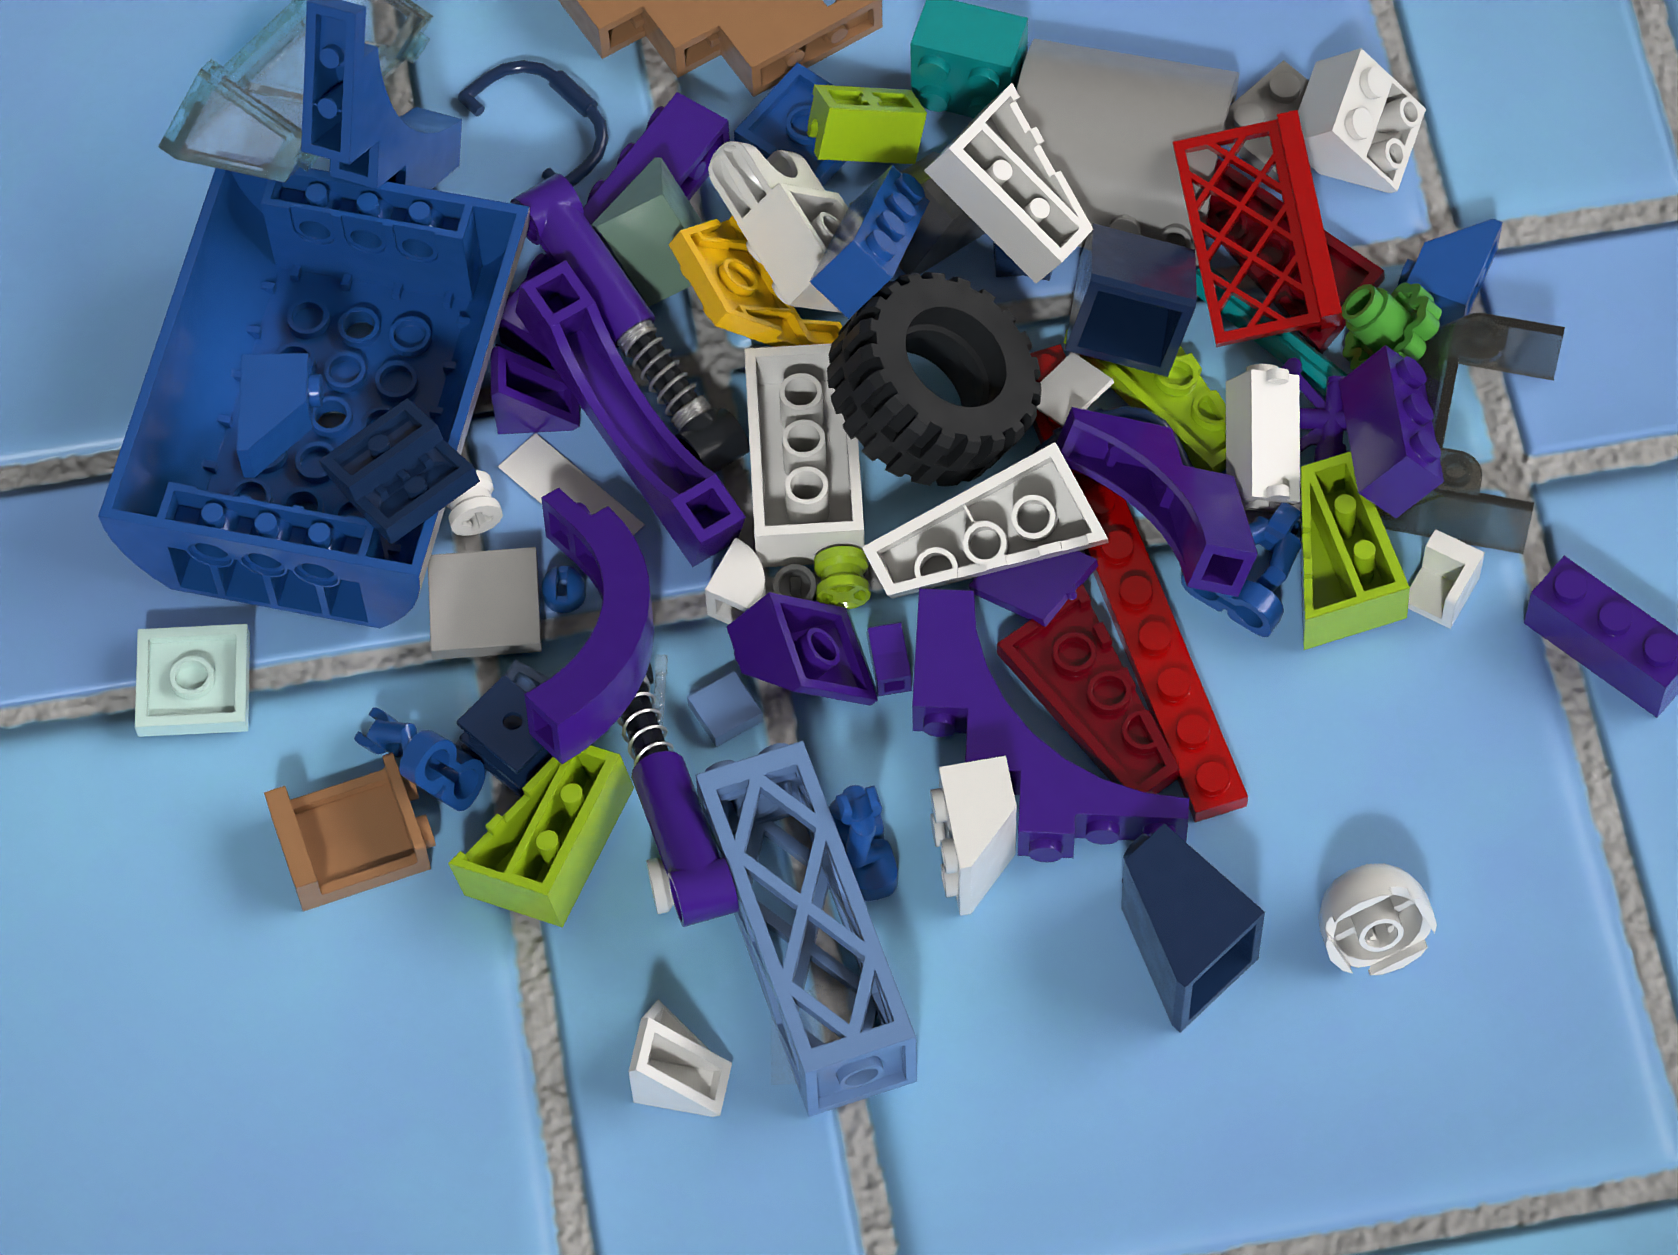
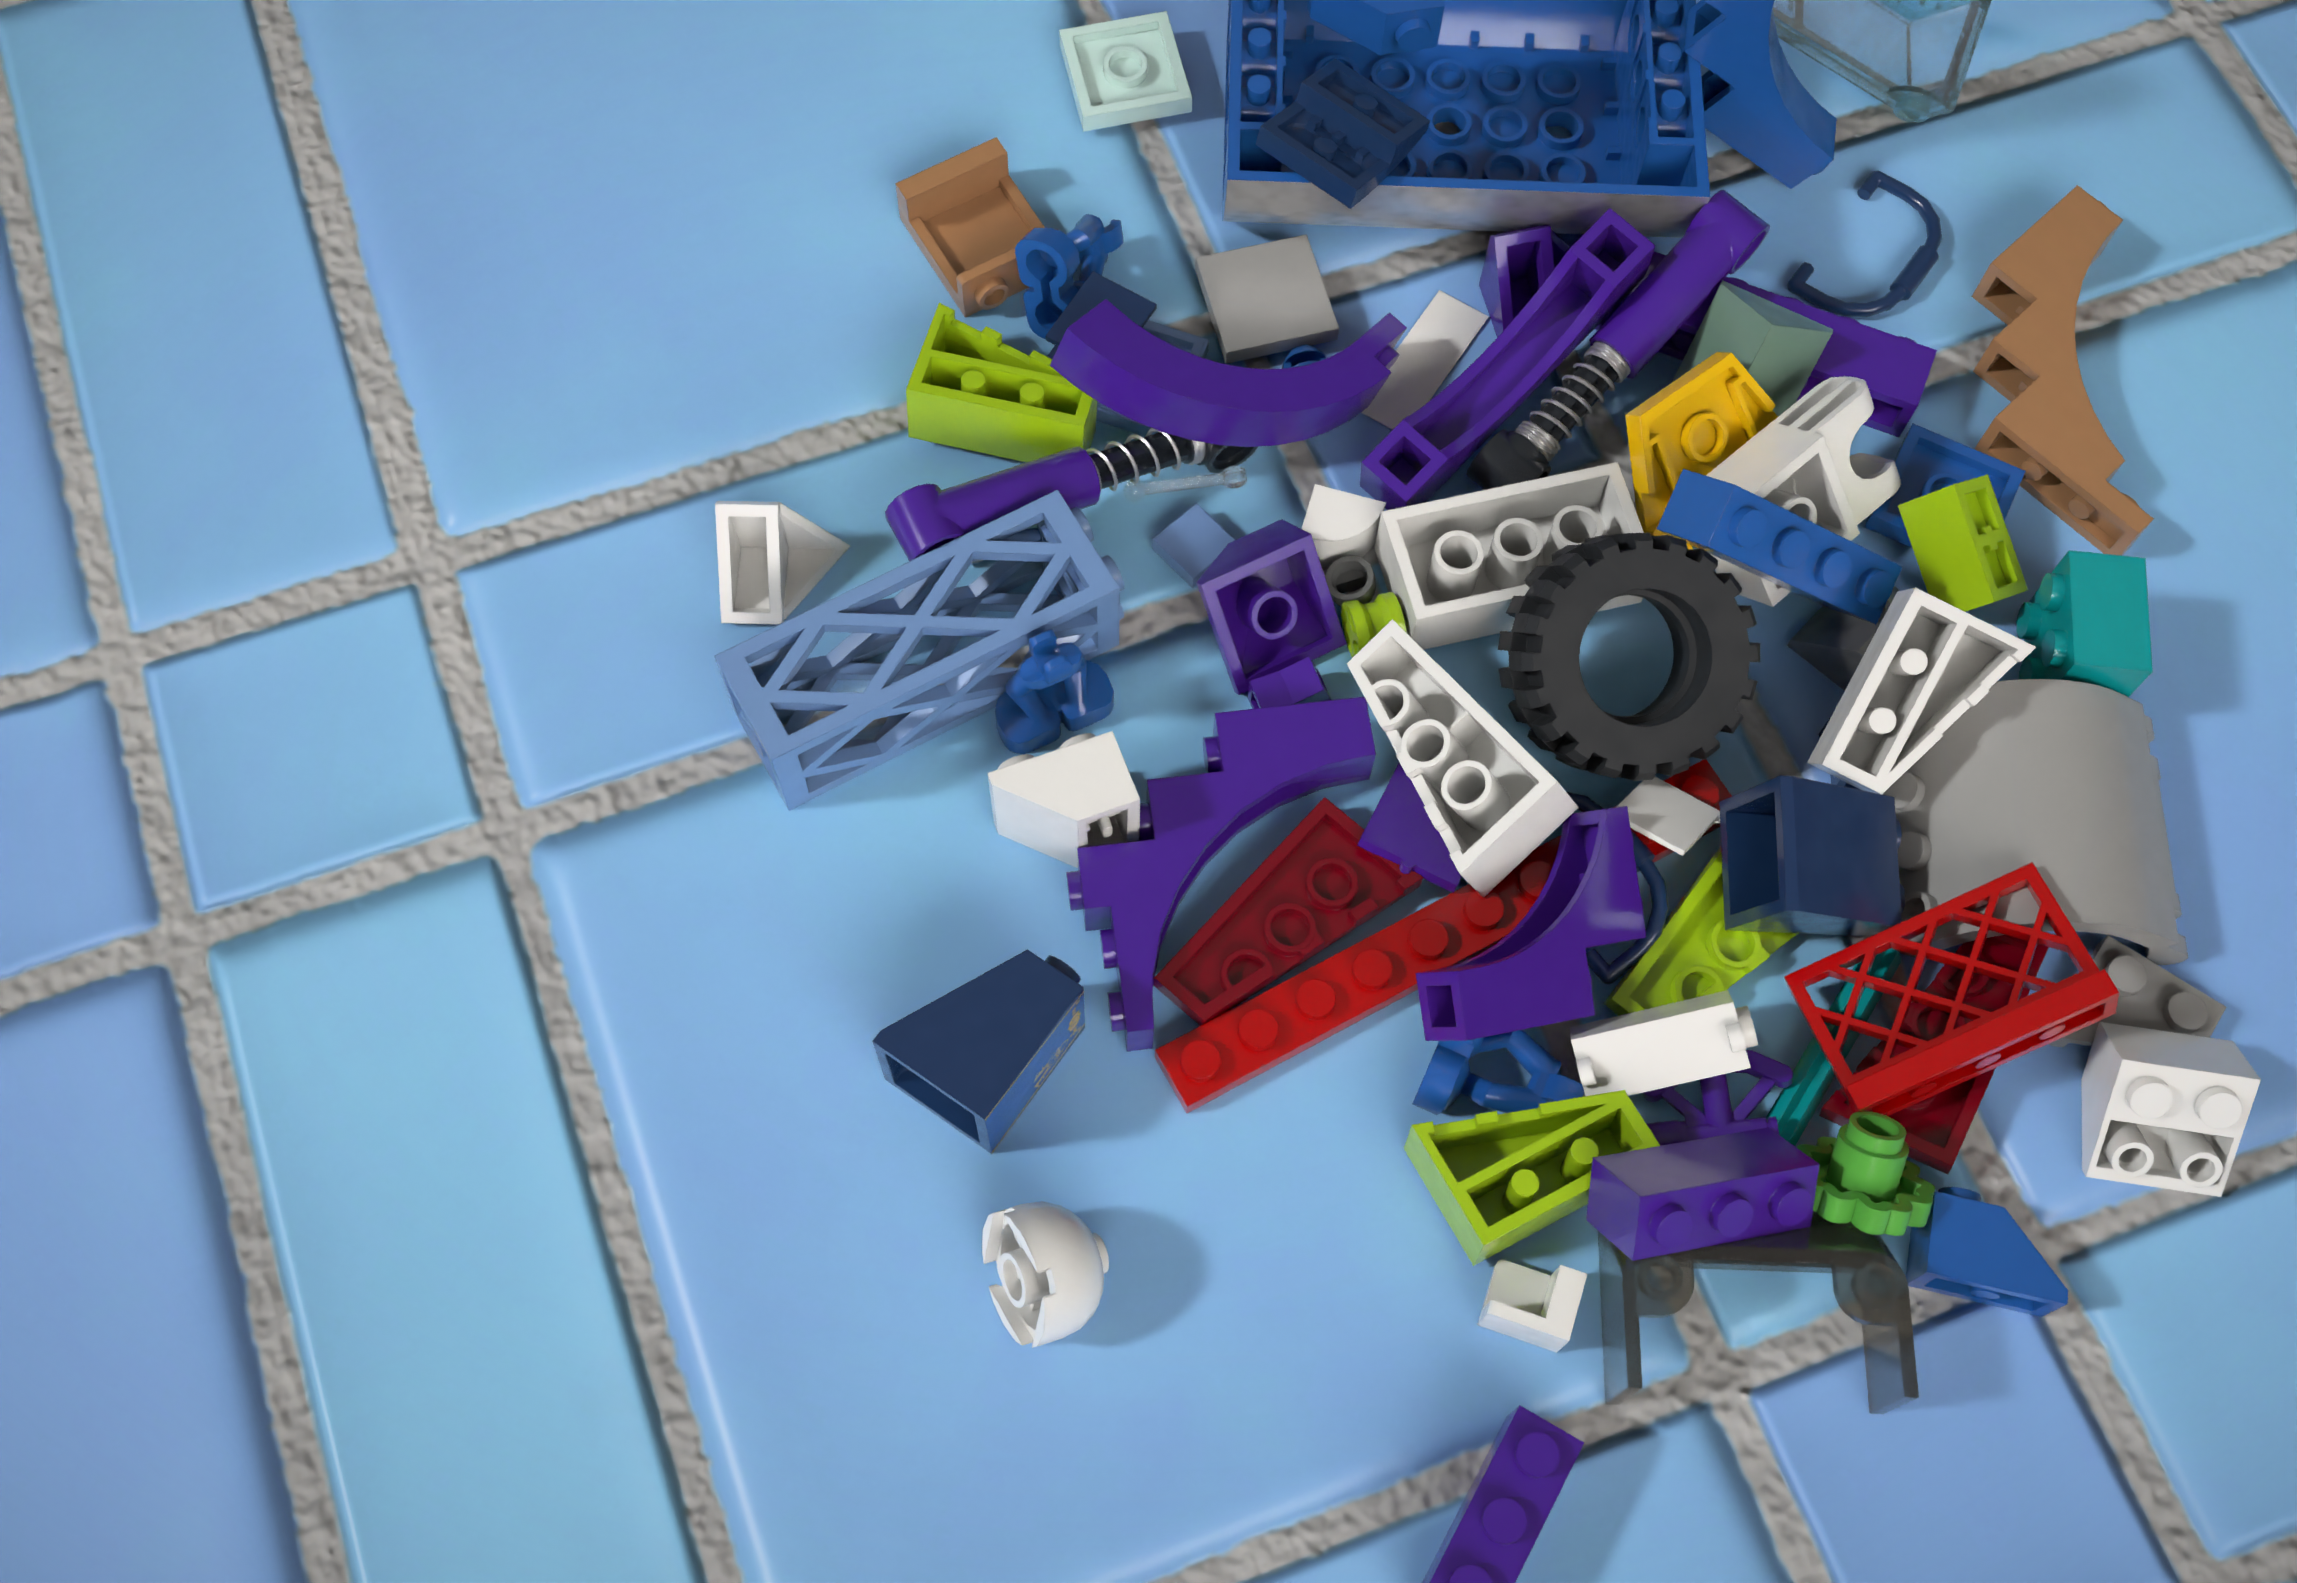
camera: 75 degrees right, 5 degrees up
(475, 509) = (1379, 263): white wheel -> none

